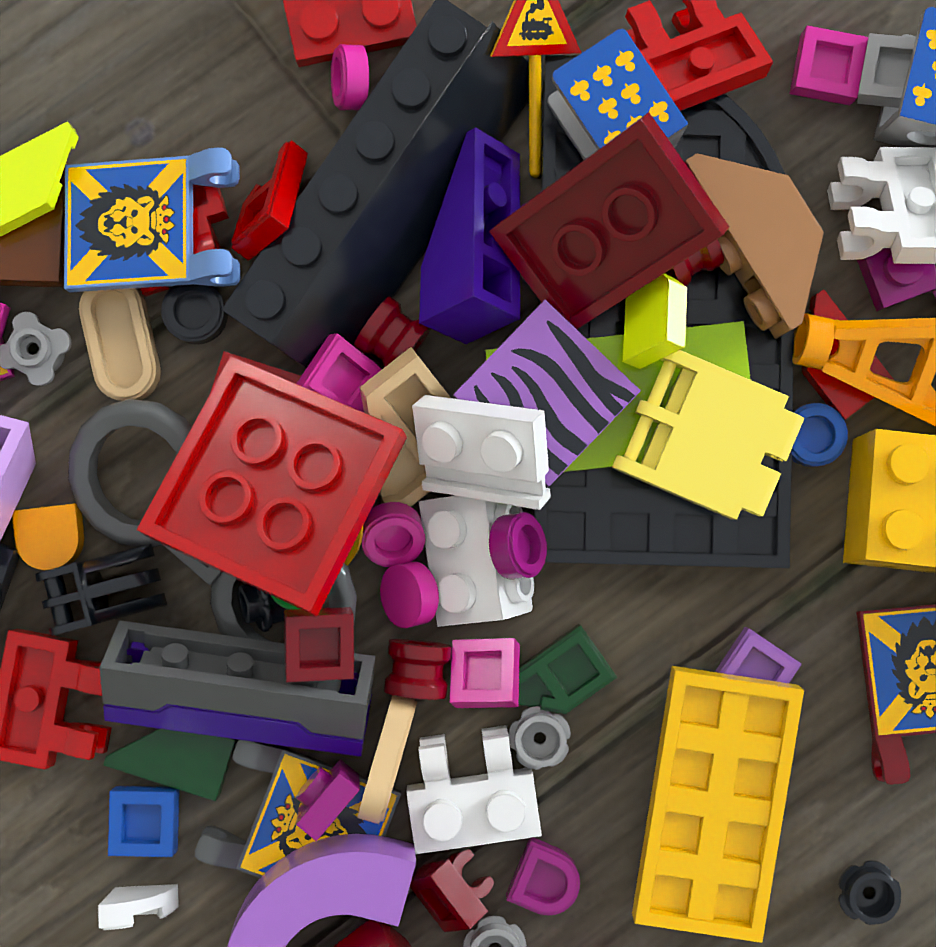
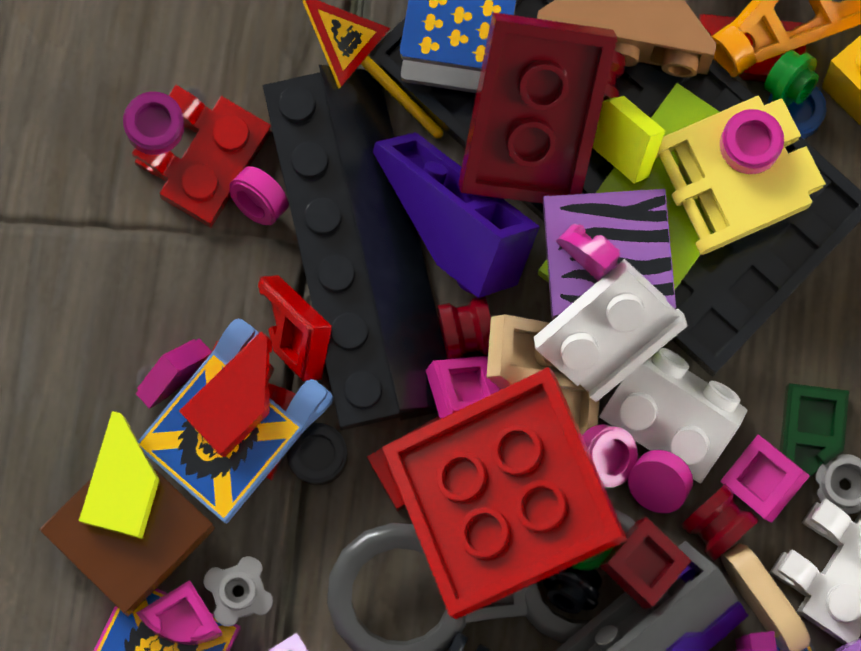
camera: 45 degrees left, 10 degrees down
(120, 343) = (290, 527): tan tile -> none
(153, 140) = (172, 372): none -> dark pink tile
(160, 206) = (234, 398): none -> red tile
(517, 546) = (696, 369): magenta tile -> none
(529, 375) = (594, 255): none -> dark pink tile
(742, 425) = (751, 141): none -> dark pink tile
(833, 410) = (792, 77): none -> green plate

